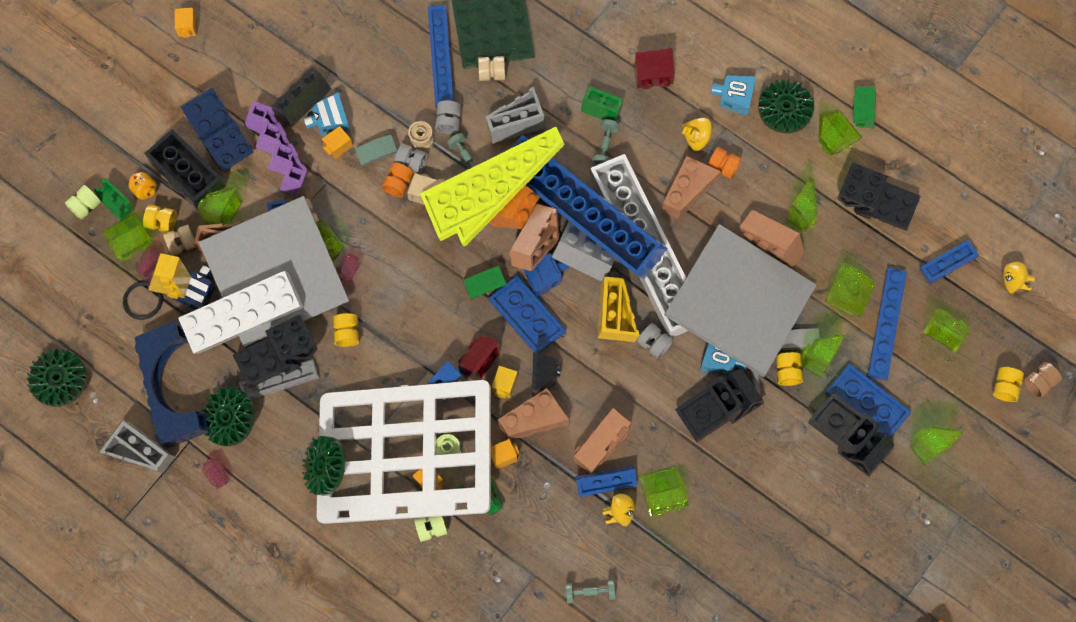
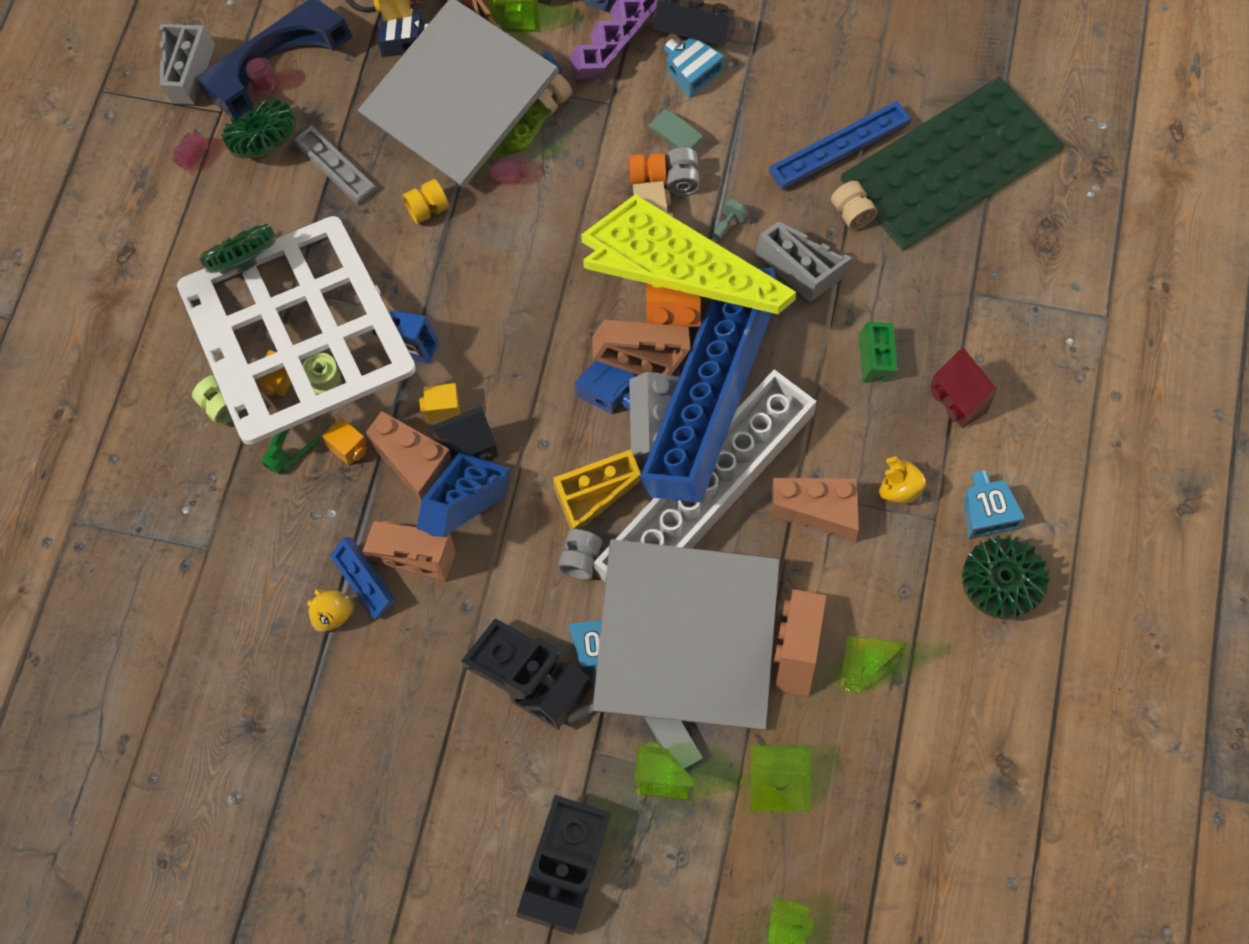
camera: 65 degrees right, 5 degrees down
(180, 399) = (261, 75): none -> clear pink brick
(240, 312) = (389, 80): white brick -> none
(278, 353) = (362, 144): black piece -> none
(336, 143) = (661, 87): light orange brick -> none
(421, 136) = (717, 169): tan wheel -> none
(447, 117) = (769, 186): light grey wheel -> none
(479, 357) = (456, 360): dark red slope -> none
(484, 282) = (562, 323): green hinge -> none
(527, 315) = (544, 392): blue tile -> none
(583, 391) = (461, 494): none -> blue wedge
(590, 591) = (195, 598): sand green wheel -> none
(610, 127) = (853, 375): sand green wheel -> none
(663, 491) = (378, 652): clear neon green slope -> none
(725, 163) = (878, 533): orange wheel -> none
(789, 369) = (611, 745): yellow wheel -> none
(836, 132) = (1007, 661): clear neon green slope -> none
(864, 107) = (1067, 685): green hinge -> none
(870, 399) = (627, 873): blue tile -> none
(876, 198) = (936, 756): black piece -> none
(887, 324) = (757, 851): blue plate -> none
(949, 262) = (894, 900): blue plate -> none

